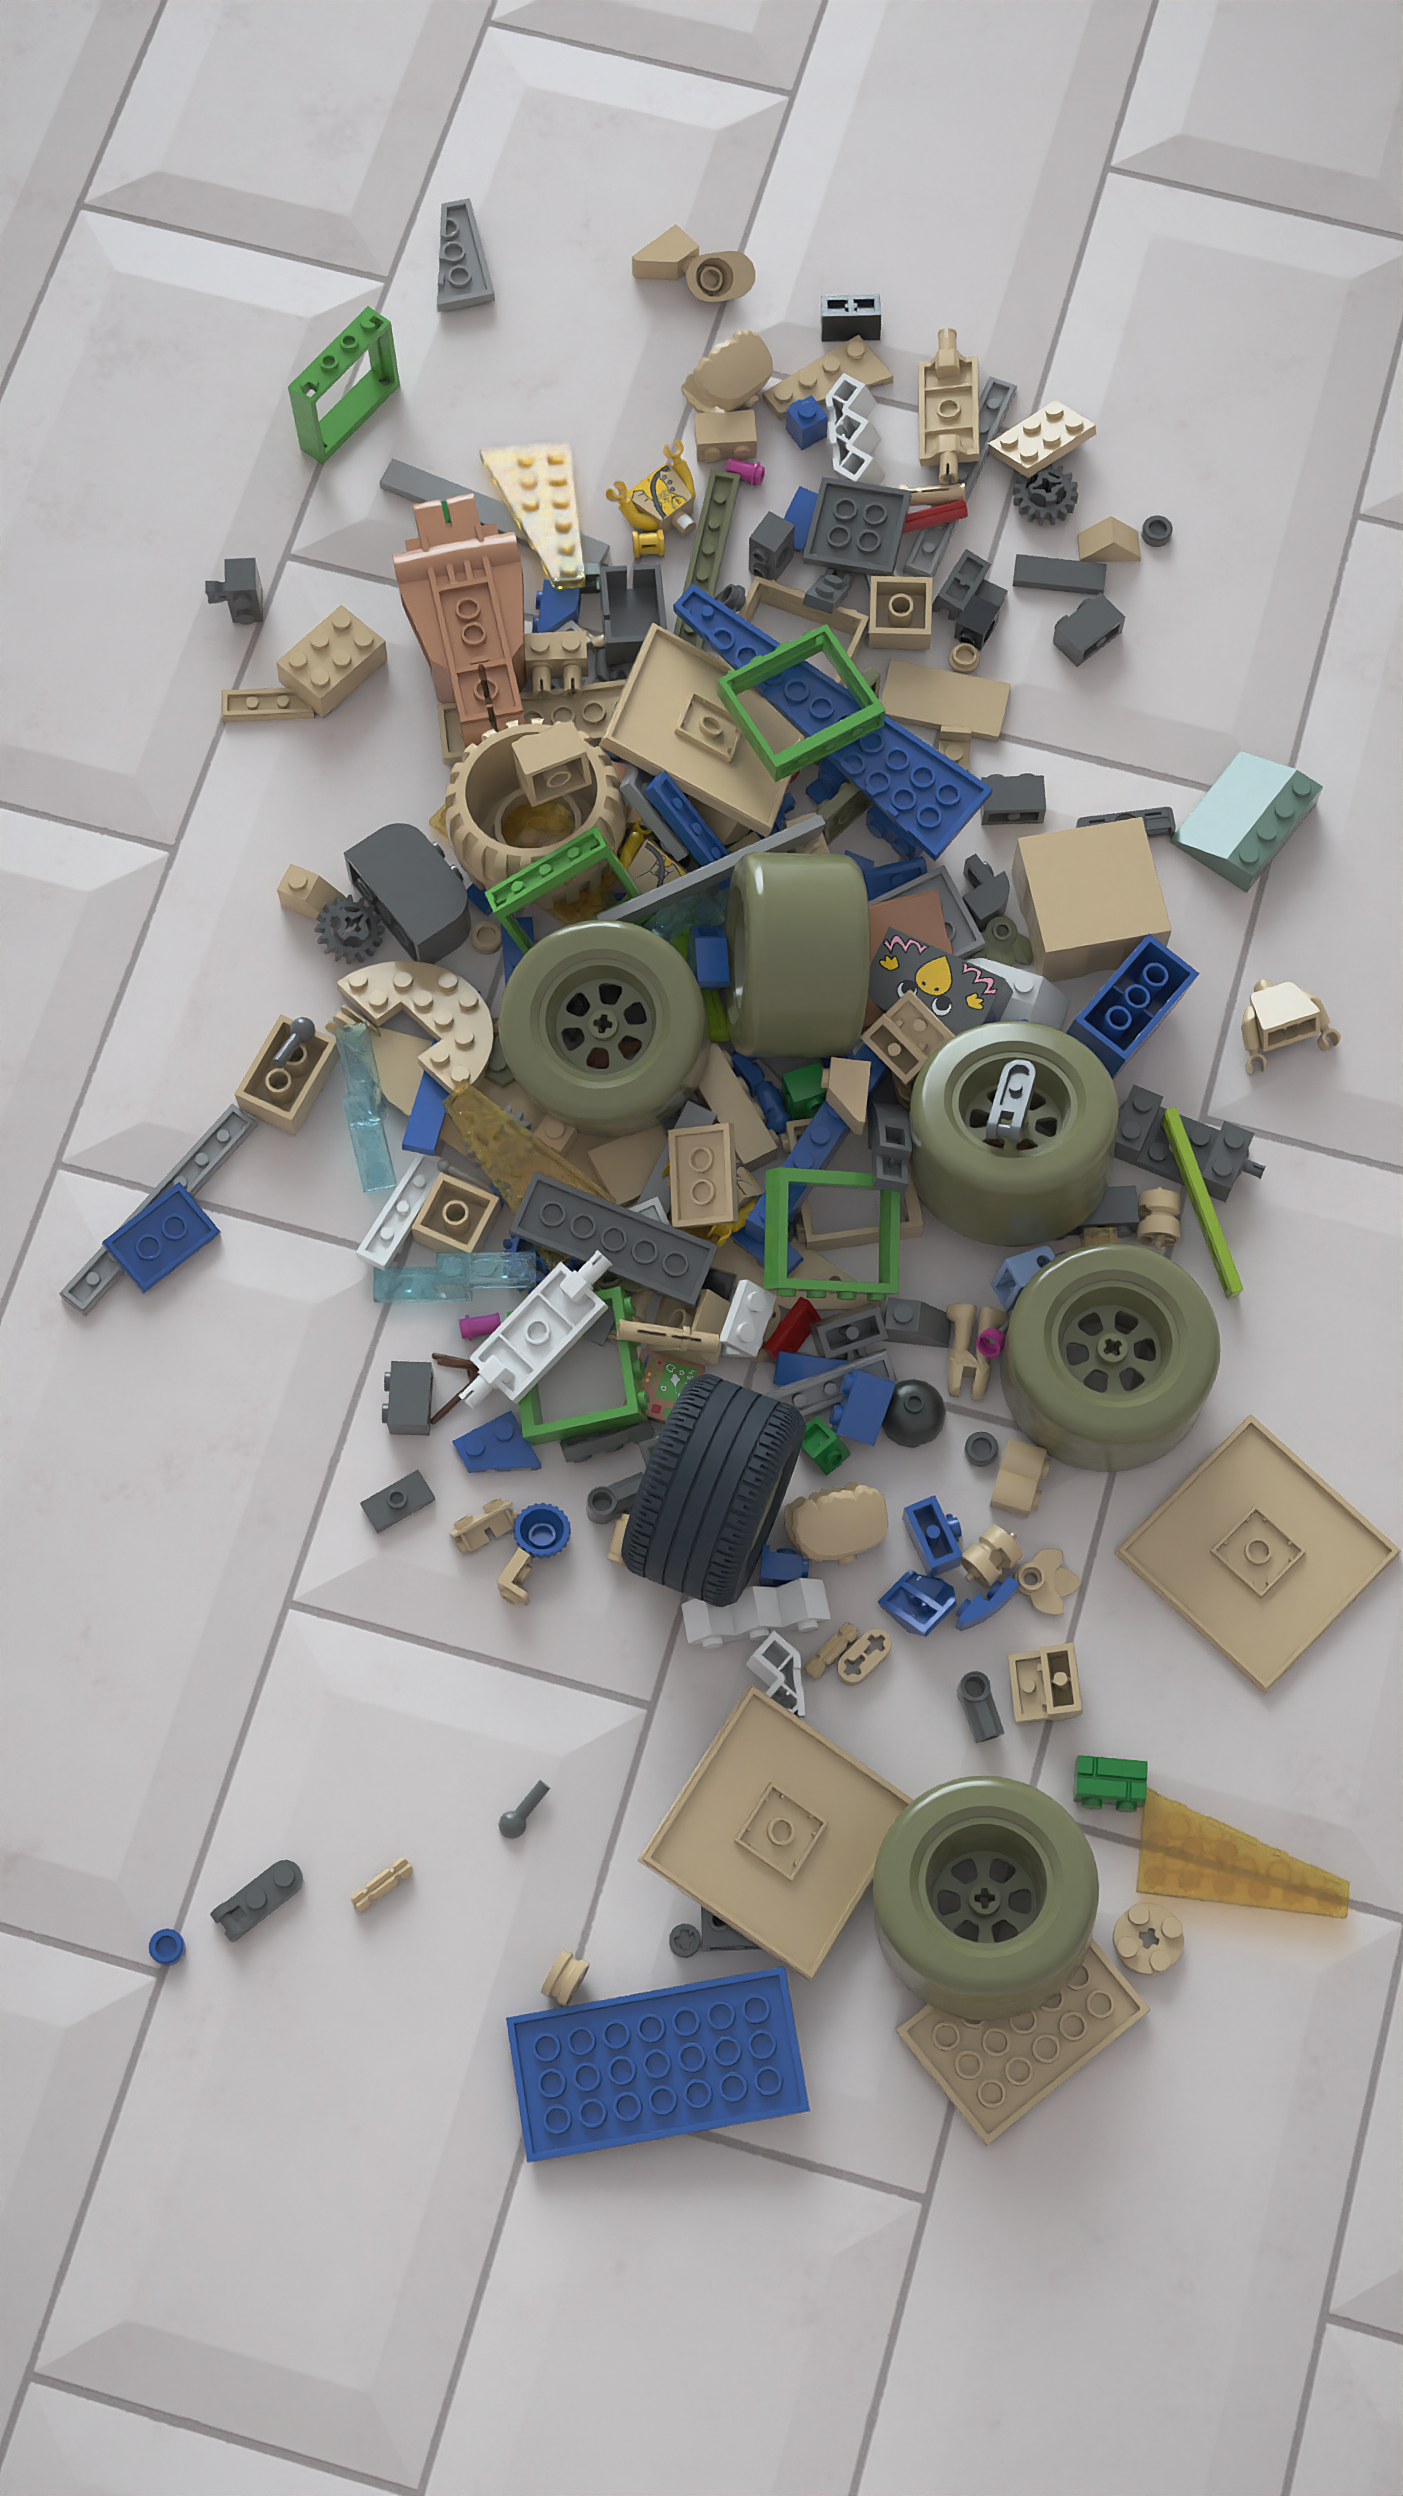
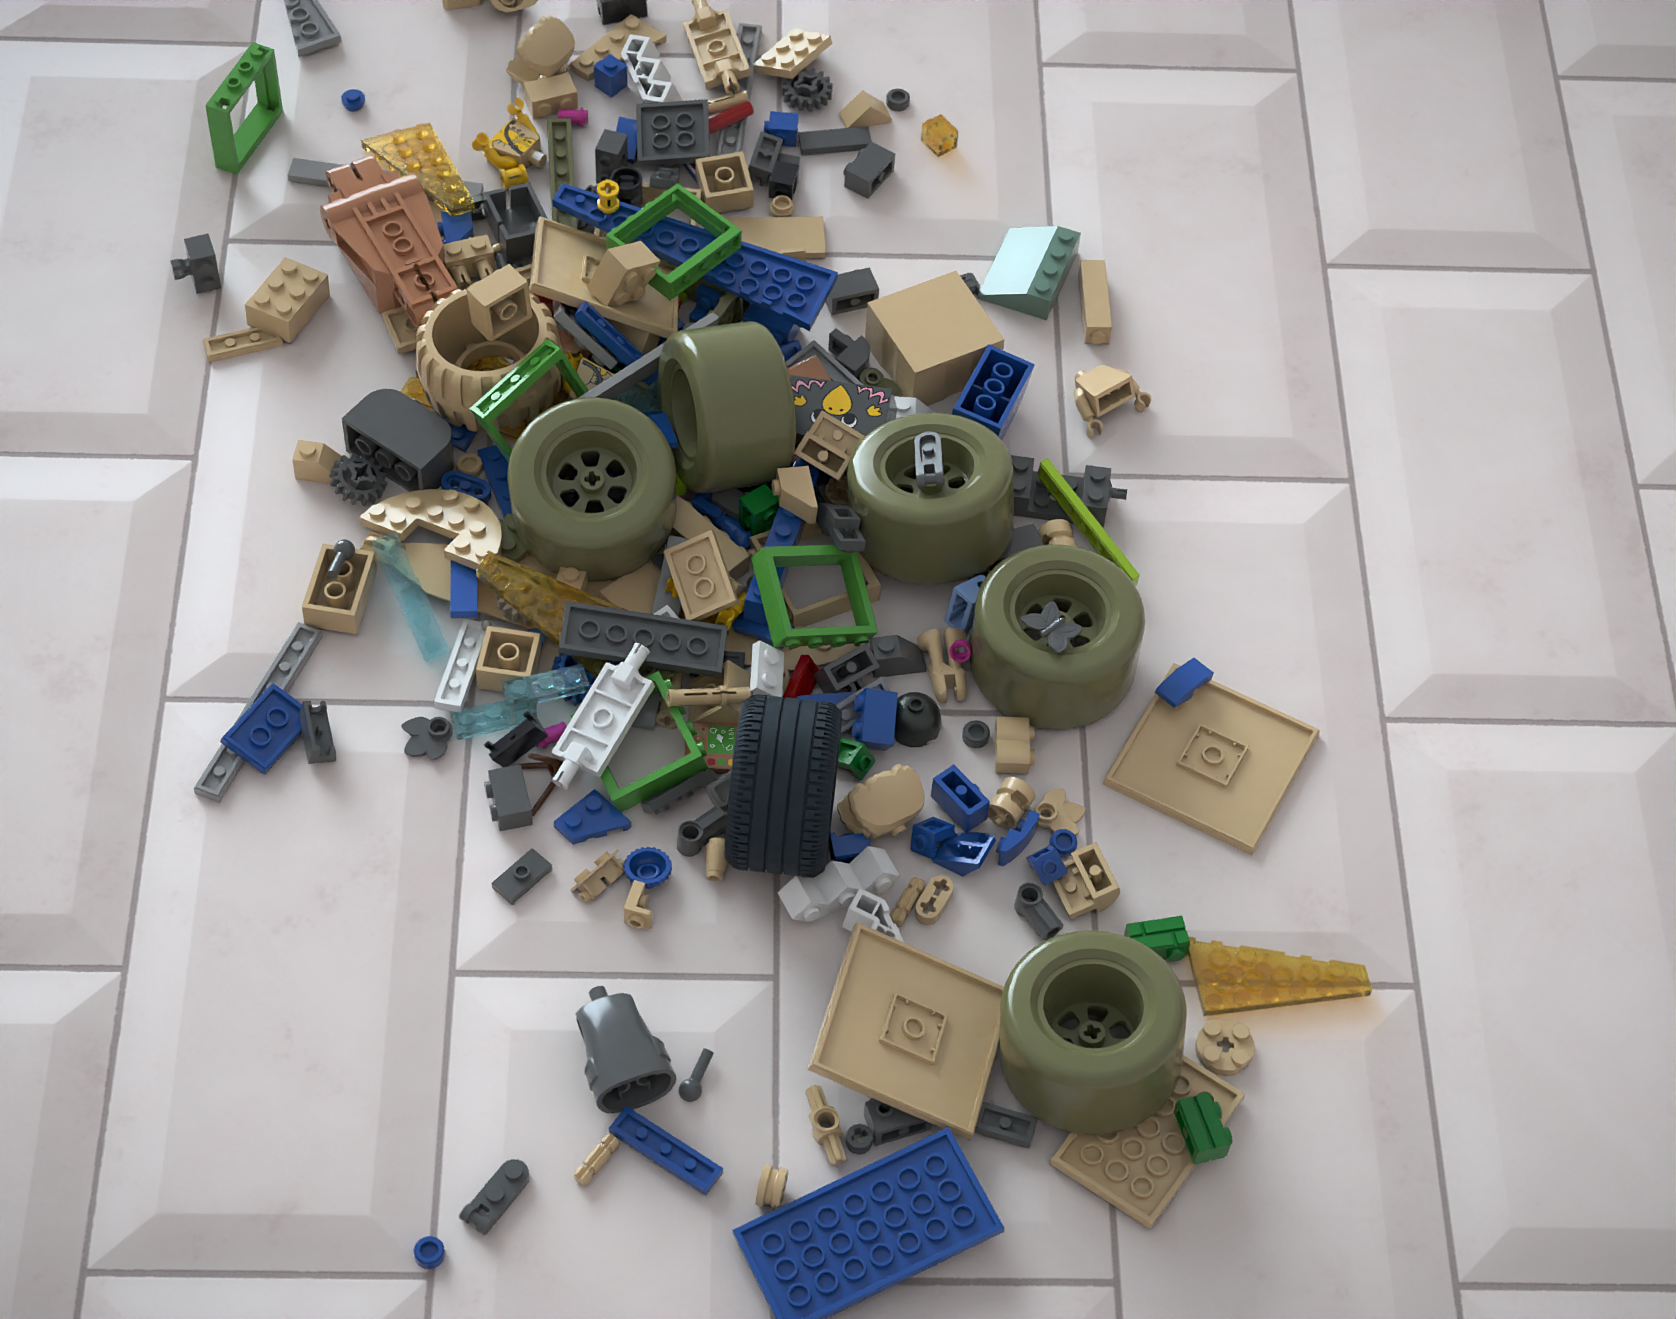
camera: 20 degrees left, 15 degrees down
(214, 1259) = (317, 733): none -> dark grey hinge
(335, 1293) = (425, 739): none -> dark grey plate
(436, 1328) = (517, 741): none -> black hinge
(442, 1765) = (623, 1056): none -> dark grey torso
(461, 1896) = (666, 1150): none -> blue plate
(475, 969) = (467, 484): none -> blue plate
(486, 388) = (353, 99): none -> blue plate
(650, 1933) = (830, 1136): none -> tan axle
(722, 742) = (623, 274): none -> tan brick
(742, 620) = (602, 202): none -> yellow bush
(773, 602) = (629, 185): none -> black wheel
(858, 1970) = (1006, 1125): none -> dark grey plate
(884, 1571) = (927, 835): none -> blue bracket
(997, 545) = (783, 126): none -> blue brick
(1009, 1649) = (1047, 864): none -> blue bracket
(1039, 1622) = (1064, 842): none -> blue plate
(1083, 2046) = (1202, 1128): none -> green brick
(1097, 1364) = (1052, 625): none -> dark grey piece
(1191, 597) = (939, 135): none -> clear yellow brick
(1252, 1448) = (1182, 682): none -> blue slope
(1313, 884) = (1094, 301): none -> tan brick

